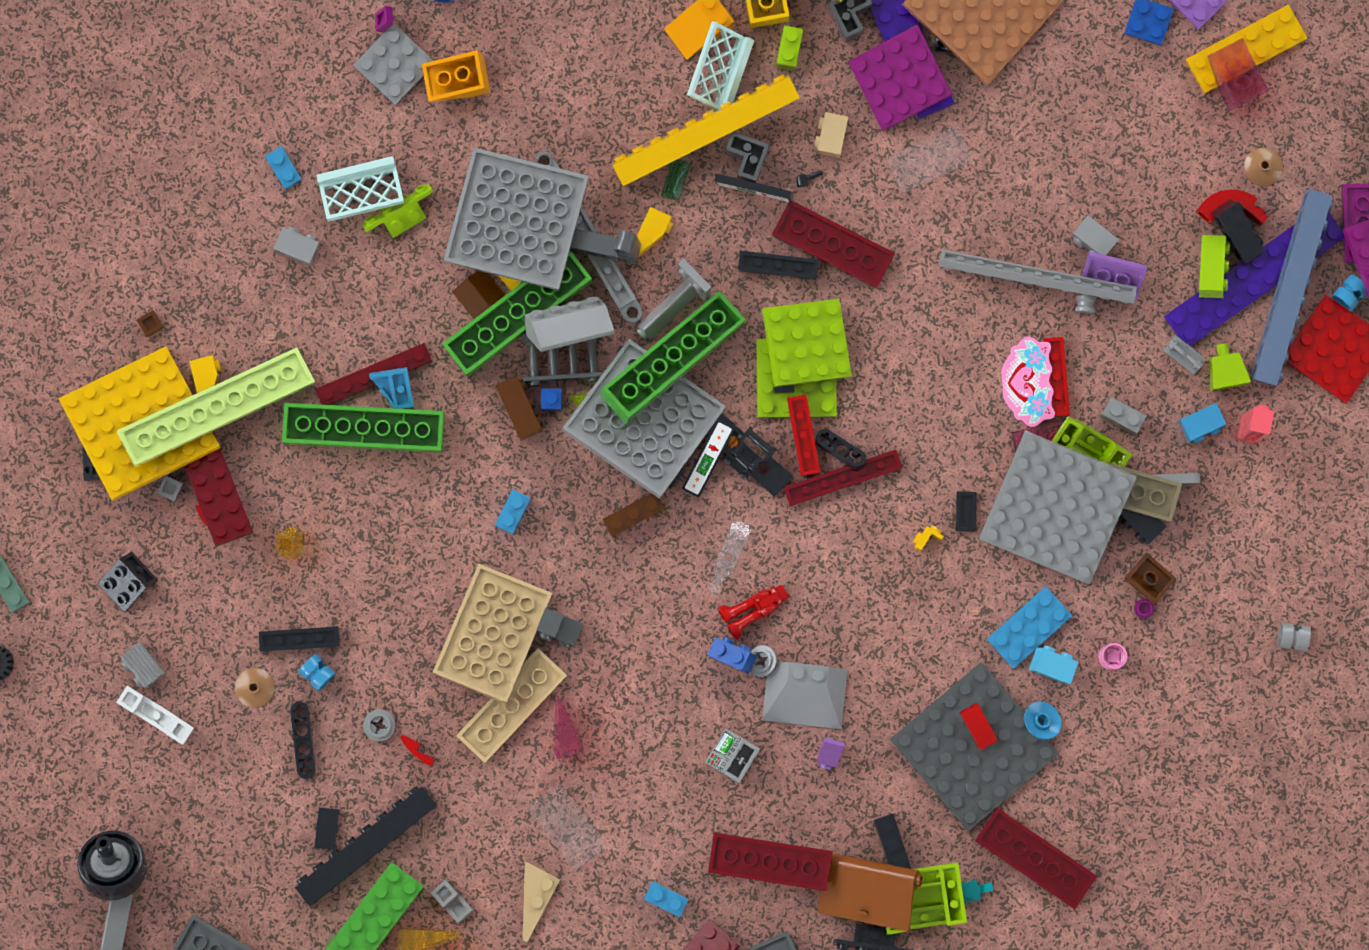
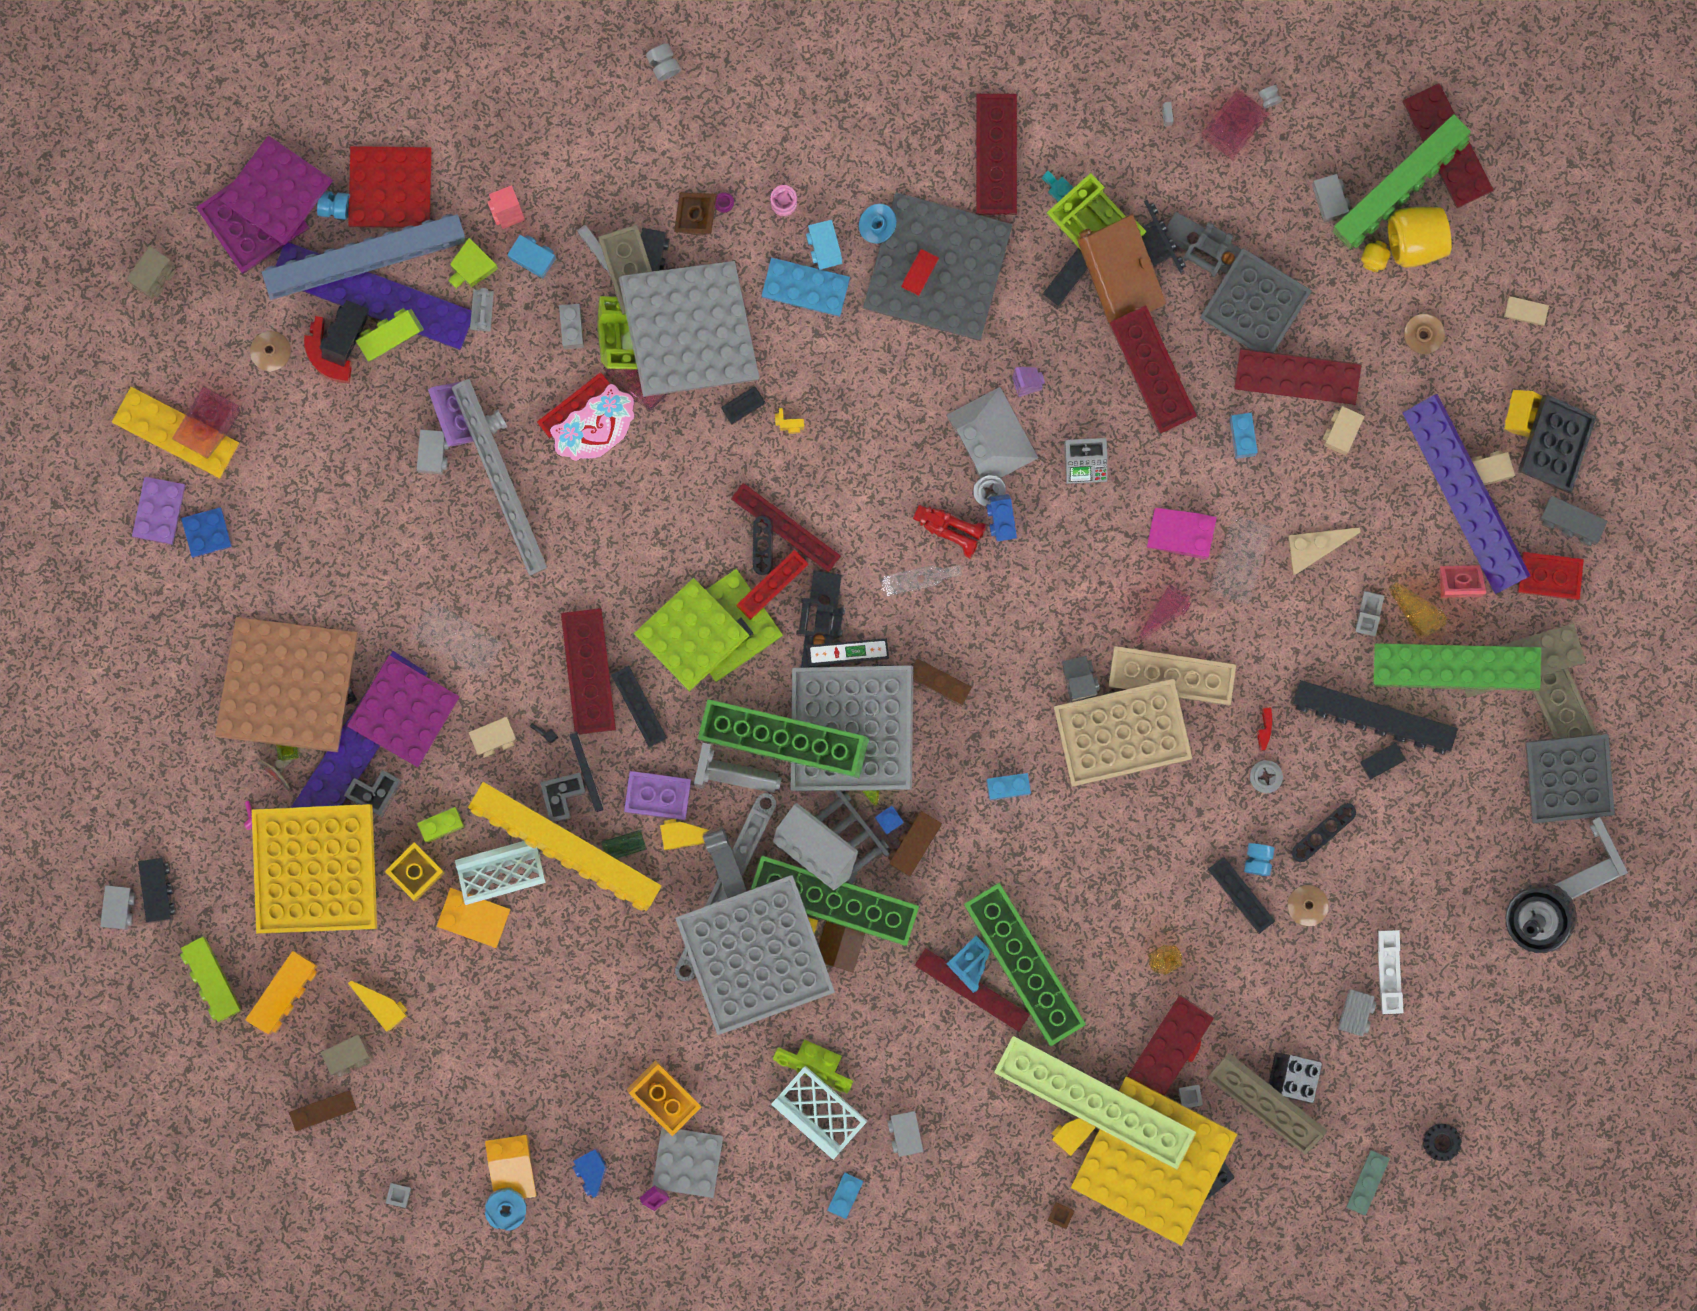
camera: 125 degrees left, 0 degrees up
(120, 544) = (1267, 1104): none -> dark tan plate
(621, 793) = (1182, 532): none -> dark pink slope
(697, 232) = (657, 795): none -> medium lavender plate

